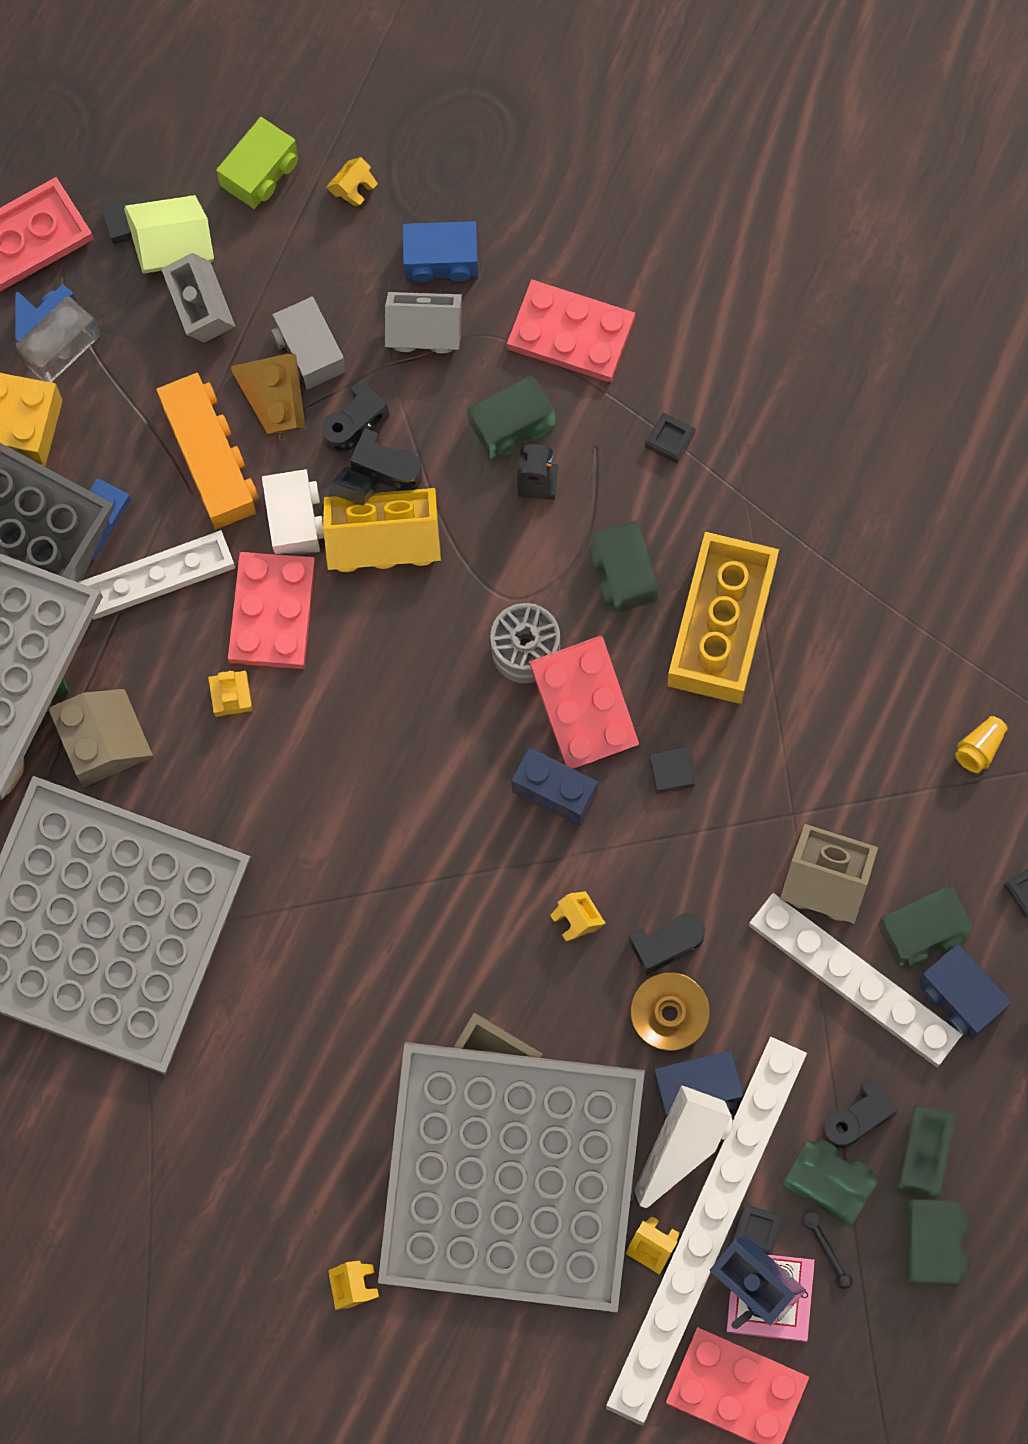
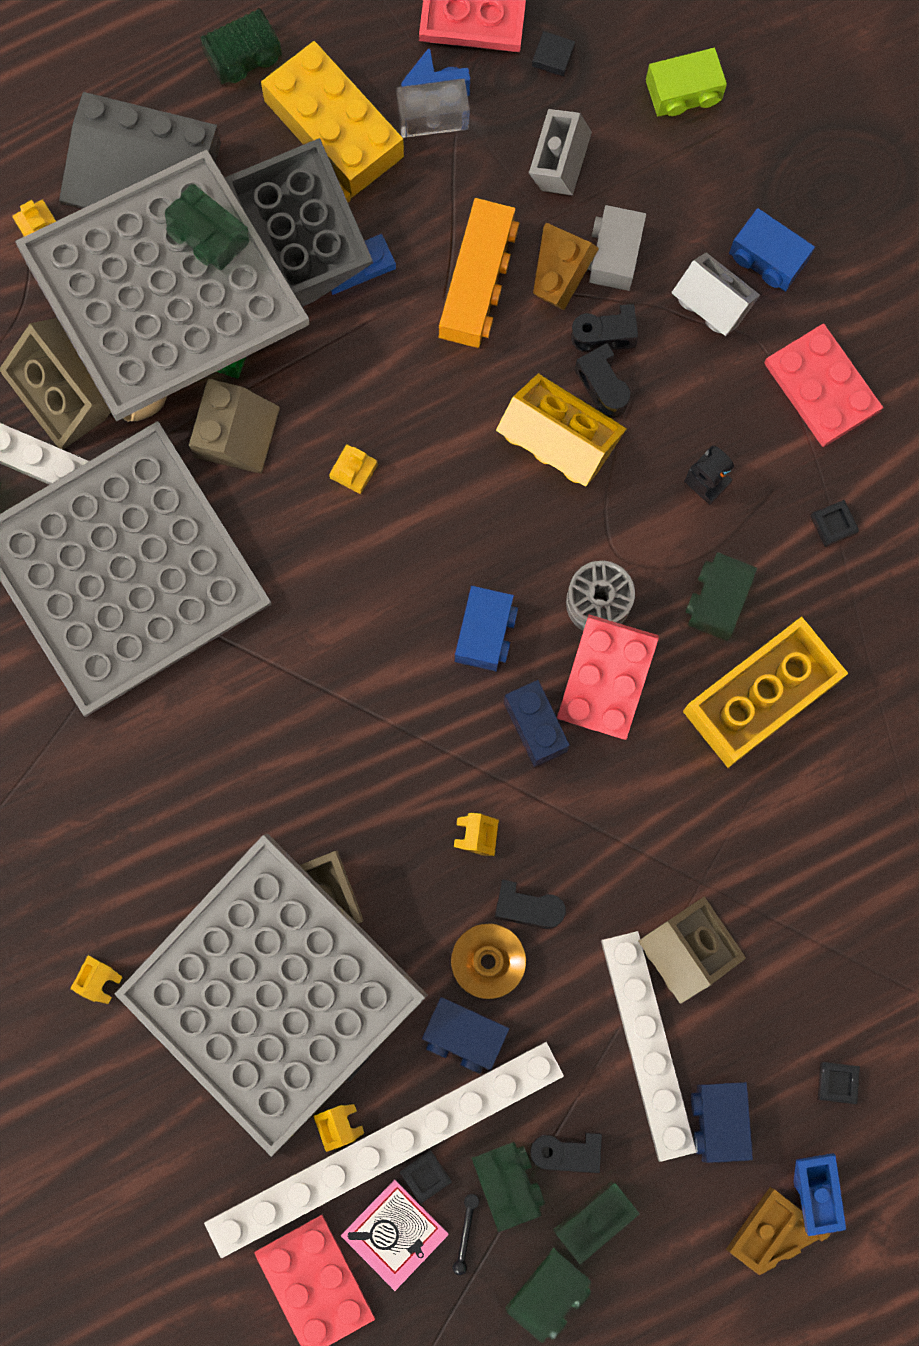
camera: 30 degrees right, 5 degrees up
(161, 573) = (370, 339): white plate -> none
(168, 231) = (579, 86): yellowish green slope -> none
(272, 610) = (432, 429): coral plate -> none
(291, 513) = (503, 367): white brick -> none
(349, 177) = (744, 144): yellow tile -> none
(354, 486) = (566, 381): black tile -> none
(449, 741) = (484, 629): none -> blue brick
(512, 417) = (725, 417): clear green brick -> none
(672, 770) = (635, 778): black tile -> none
(685, 1141) = (417, 1071): white slope -> none
(757, 1280) = (389, 1219): dark blue brick -> none
(925, 927) = (733, 1048): clear green brick -> none
(980, 746) = (887, 941): yellow cone -> none

